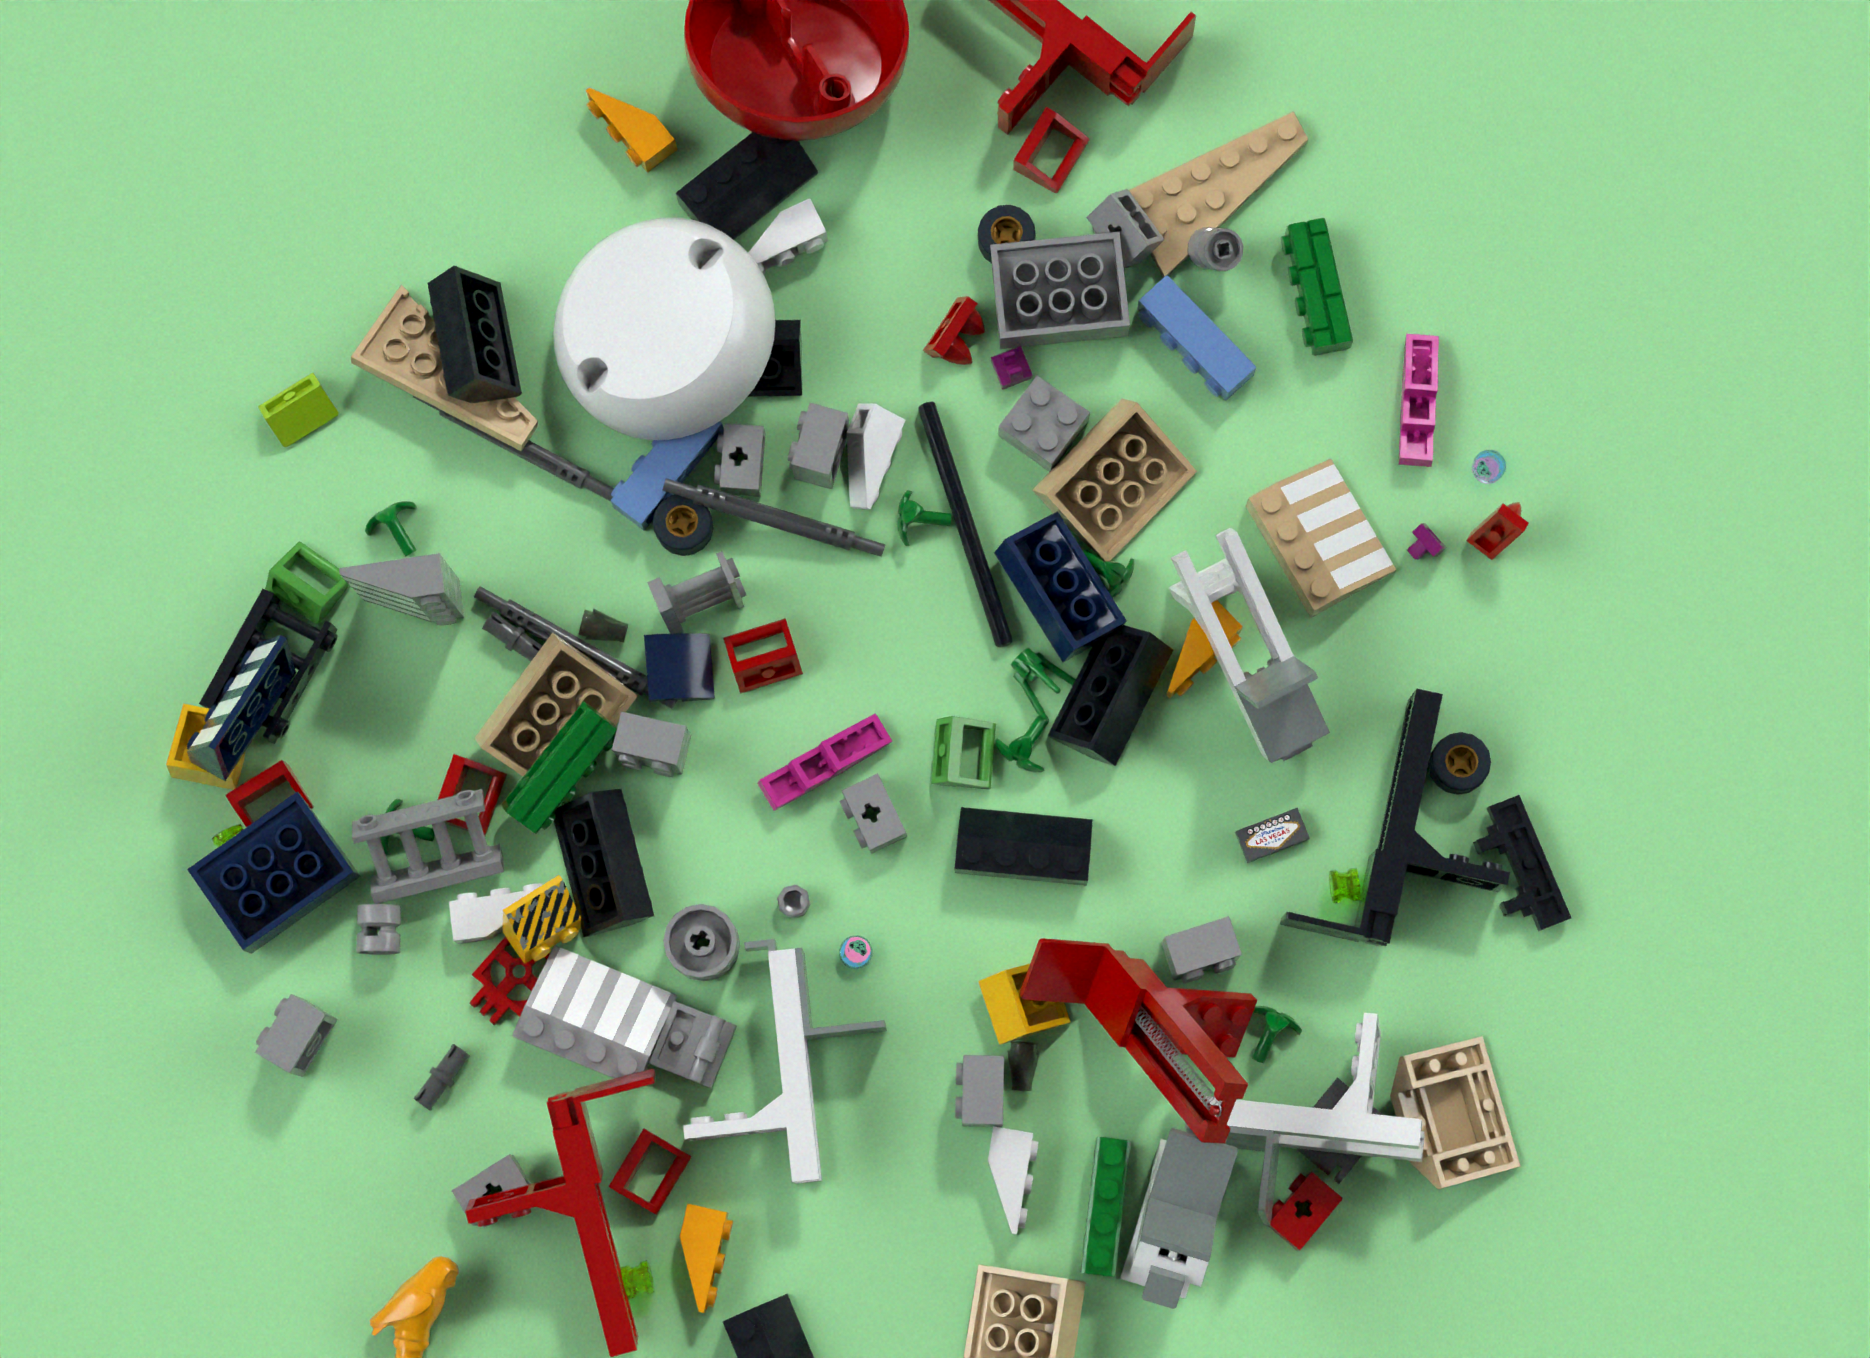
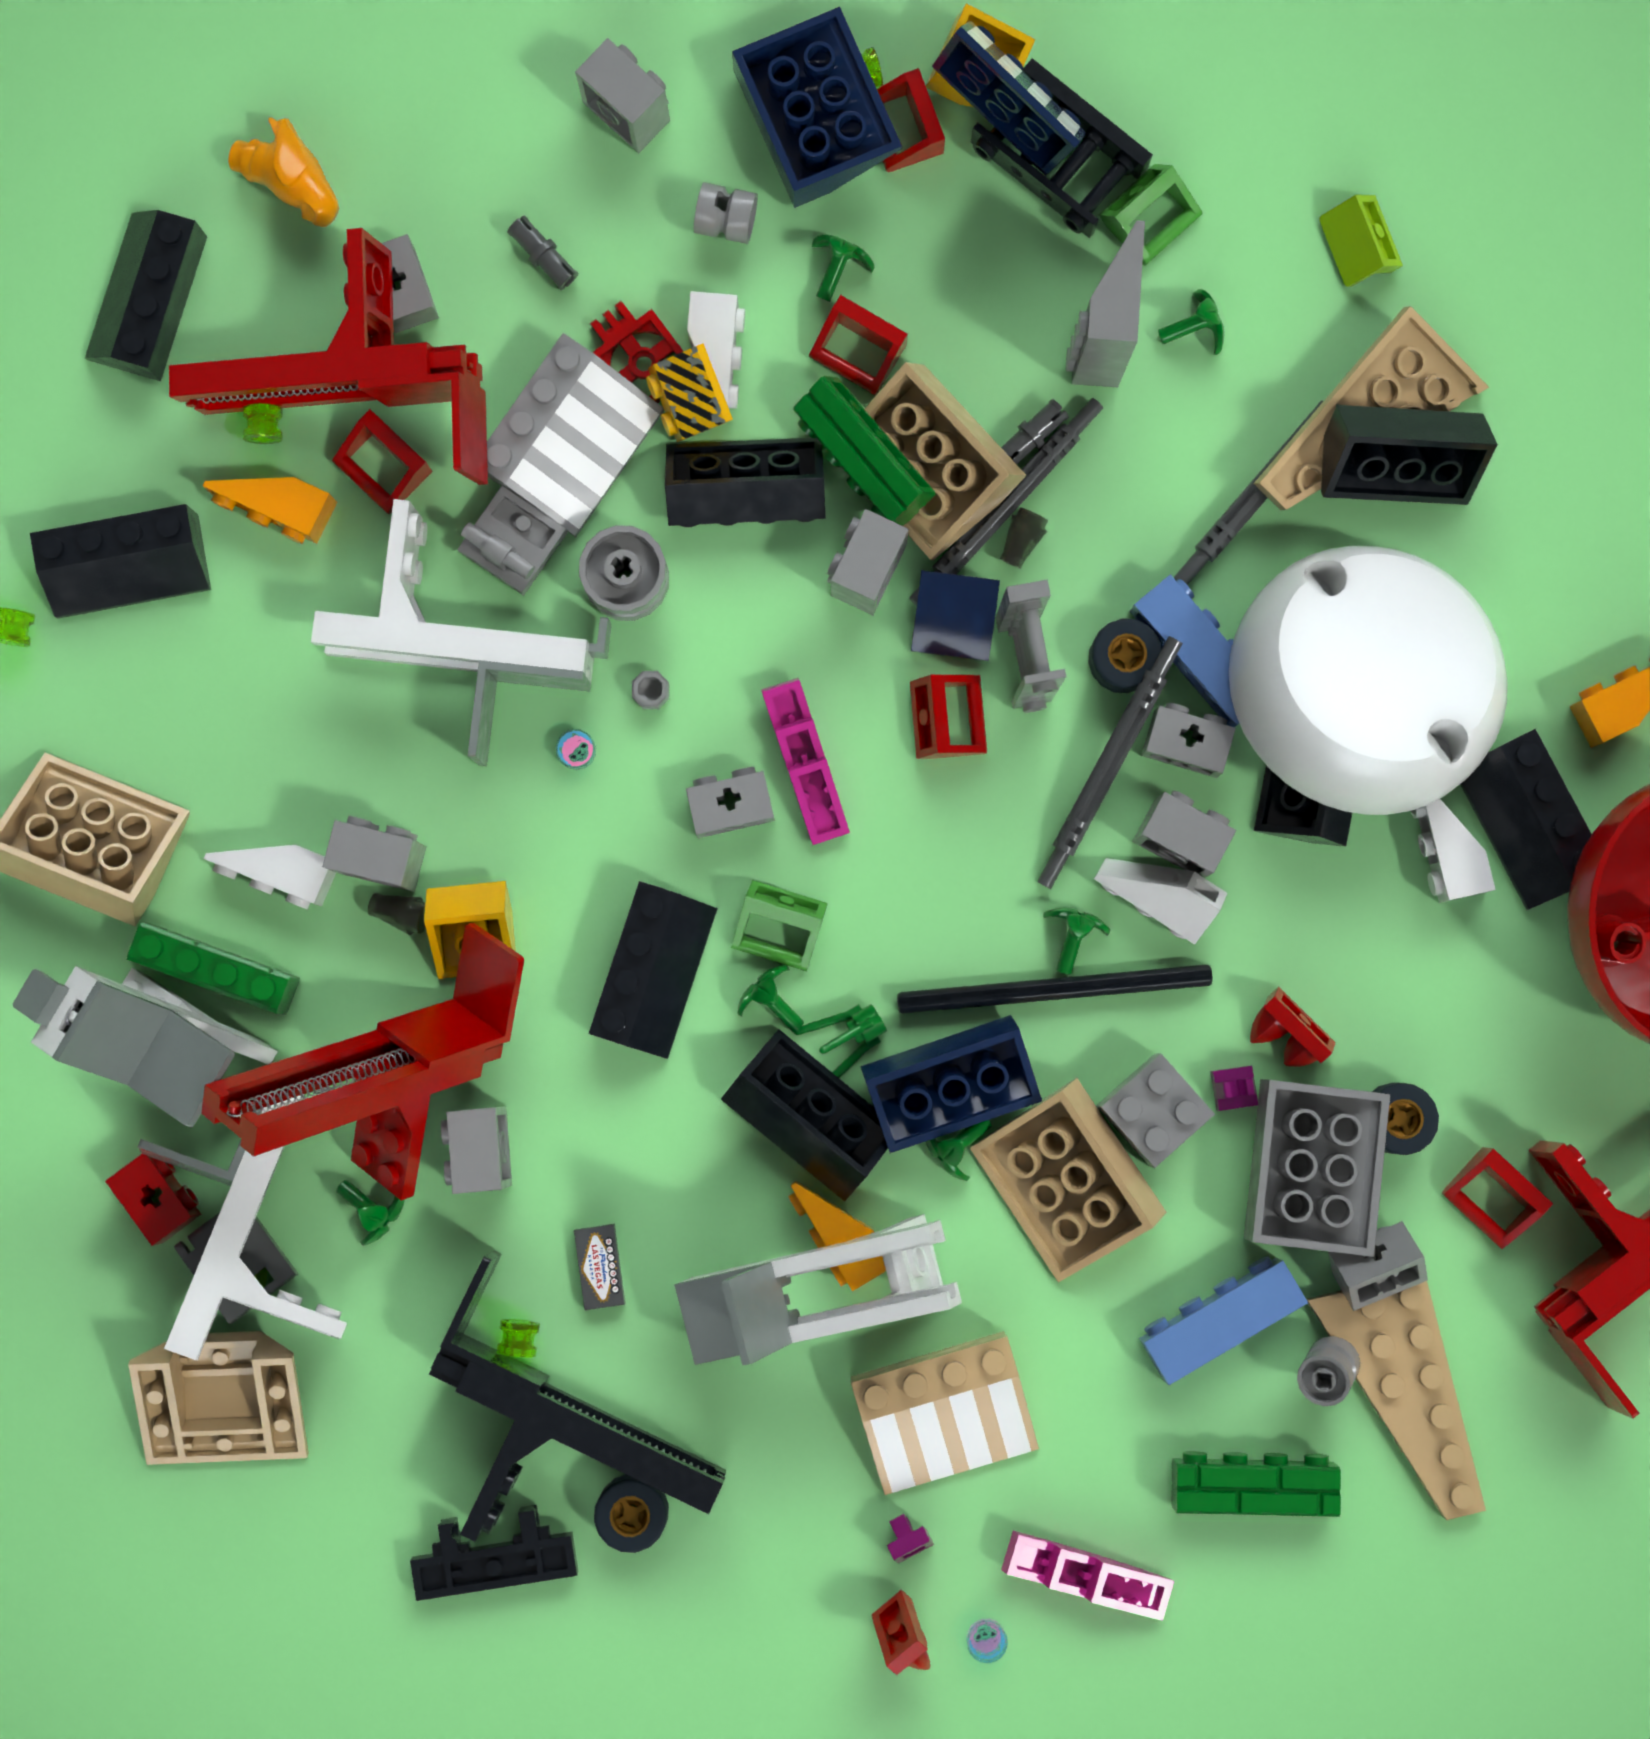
camera: 100 degrees right, 5 degrees up
(435, 874) = (775, 283): light grey fence -> none

